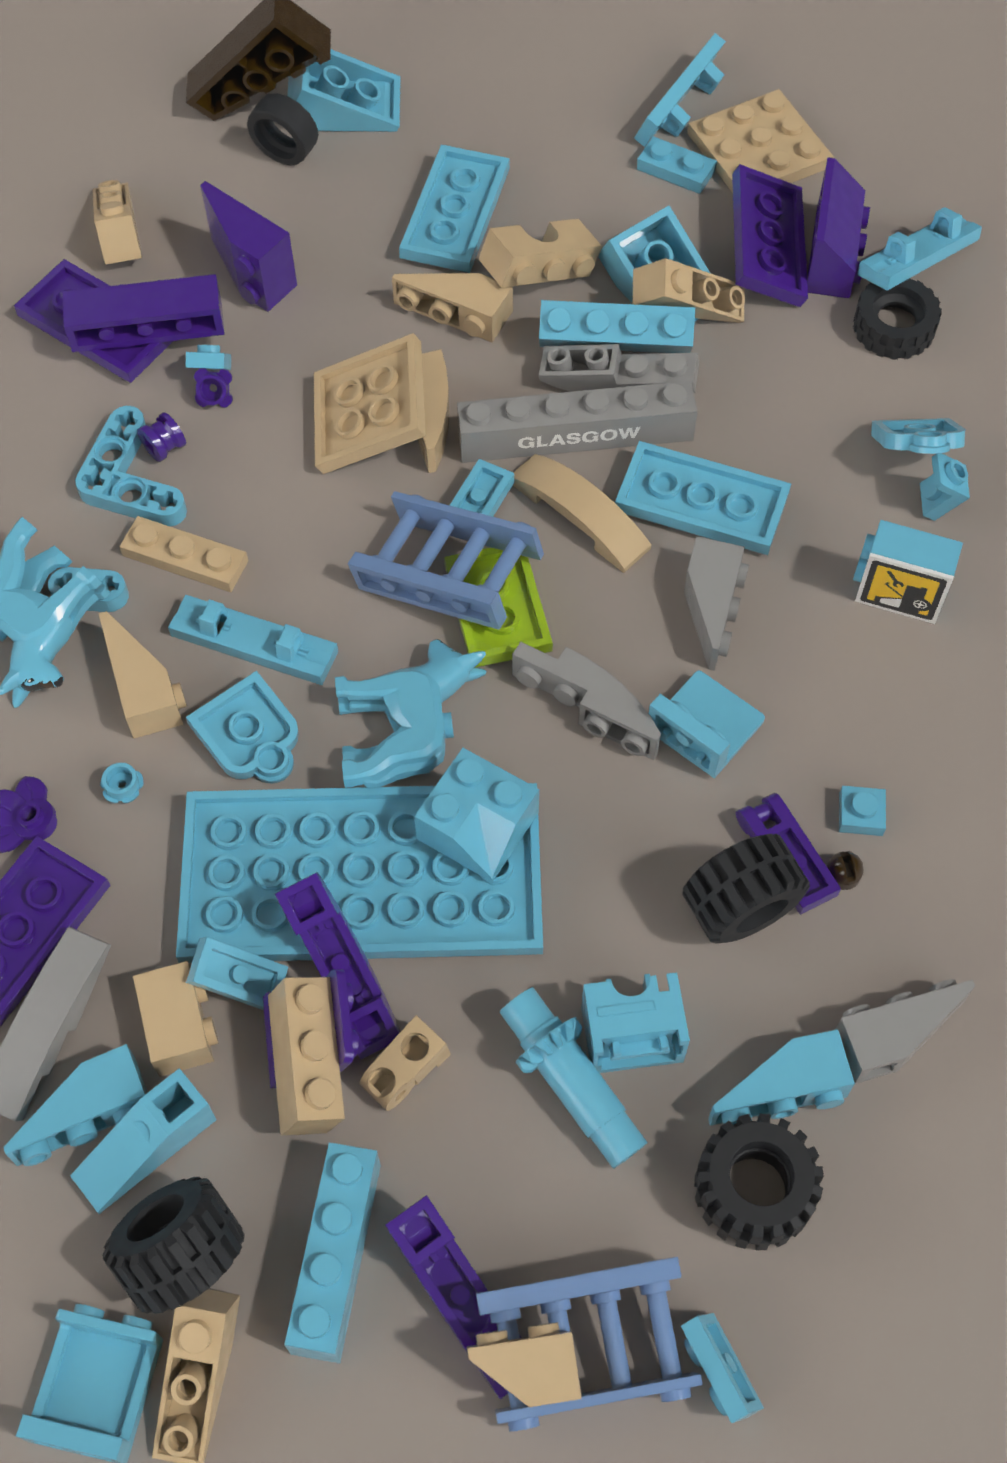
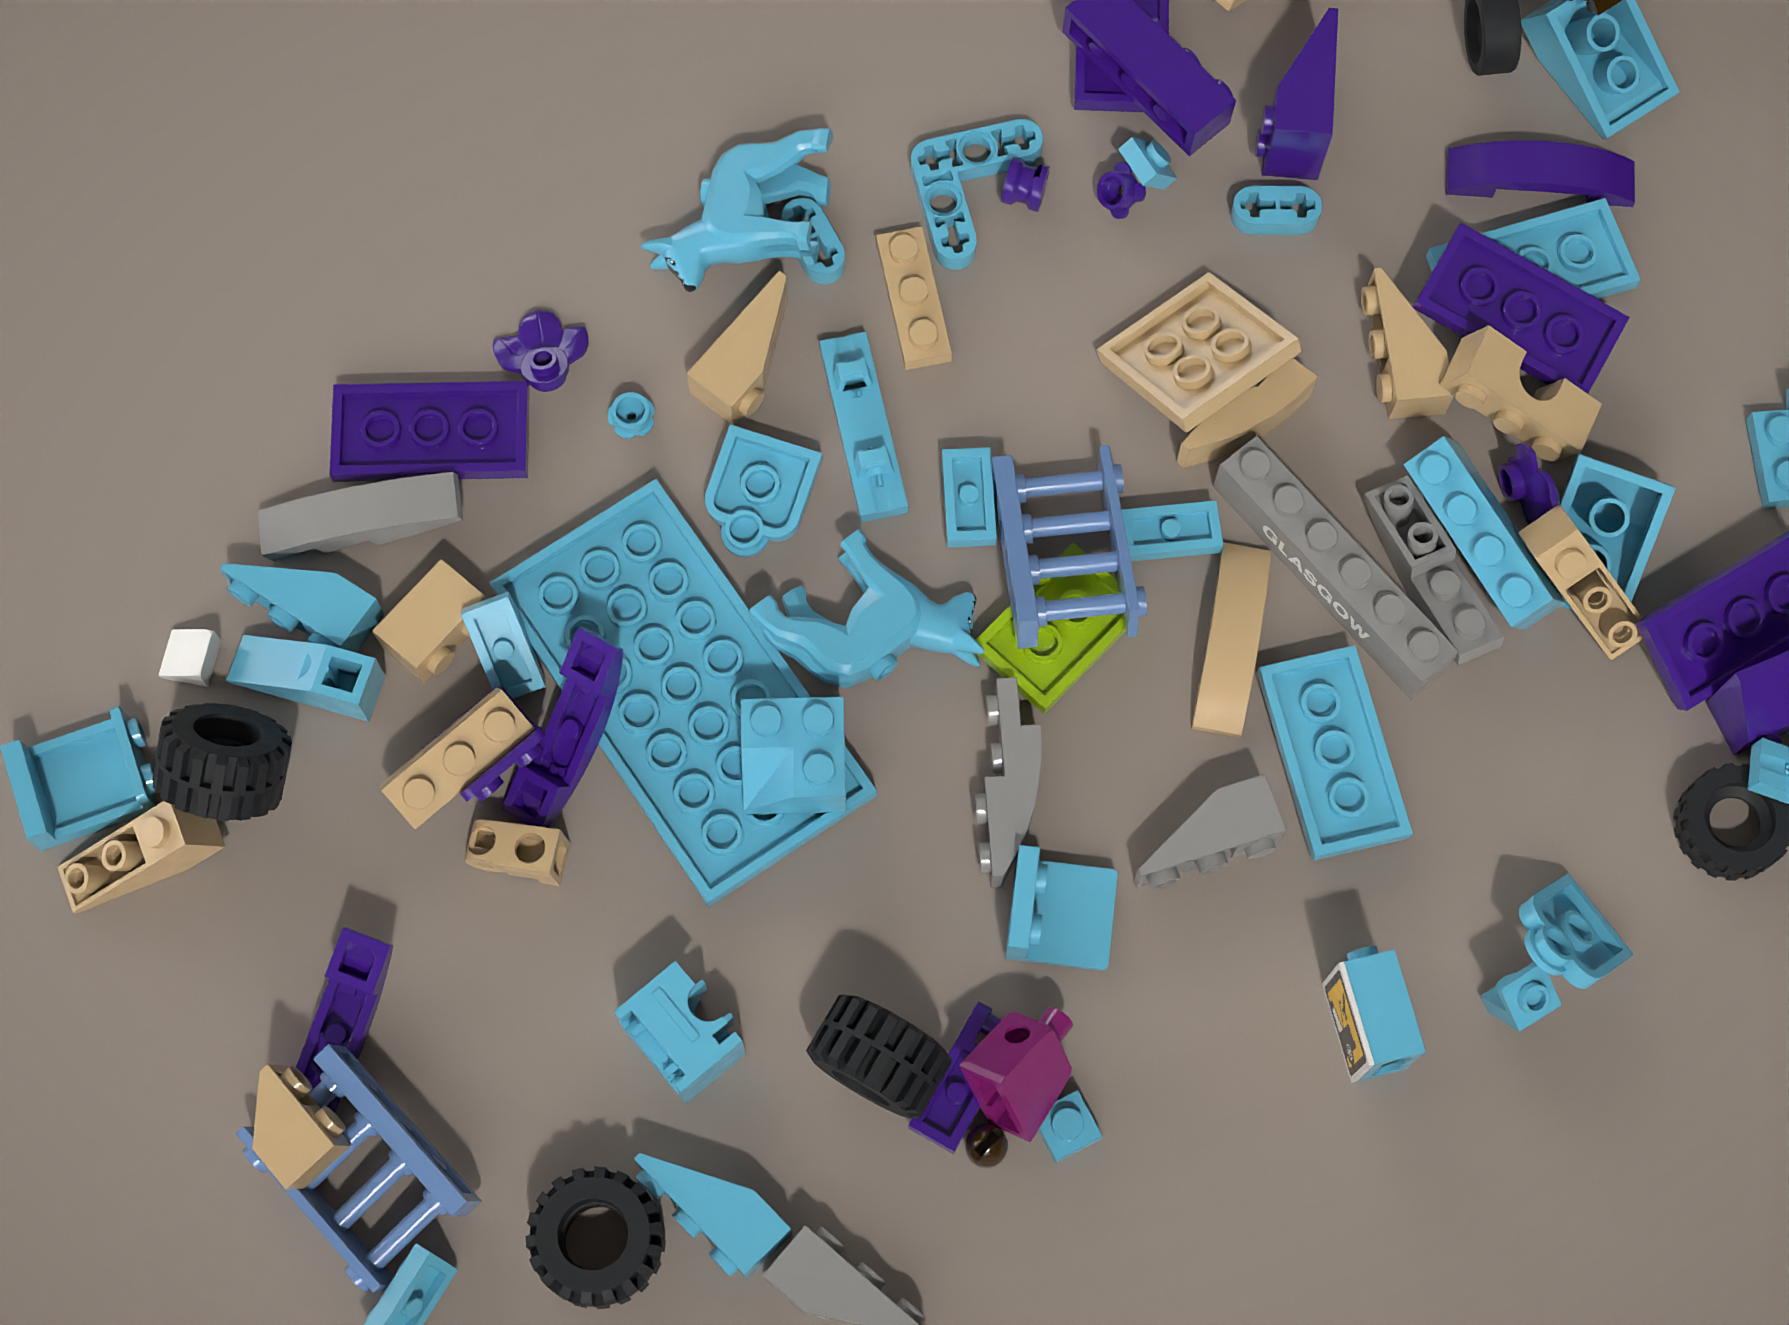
camera: 55 degrees right, 10 degrees up
(53, 1232) = (190, 656): none -> white slope
(297, 313) = (1276, 210): none -> medium azure beam
(333, 1253) = (305, 901): medium azure brick -> none
(360, 602) = (968, 497): none -> medium azure plate
(387, 168) = (1540, 167): none -> dark purple slope
(455, 227) = (1549, 318): none -> dark purple plate
(572, 1076) = (589, 1017): medium azure gear -> none
(603, 283) = (1526, 482): none -> dark purple plate
(804, 798) = (1020, 1070): none -> magenta torso

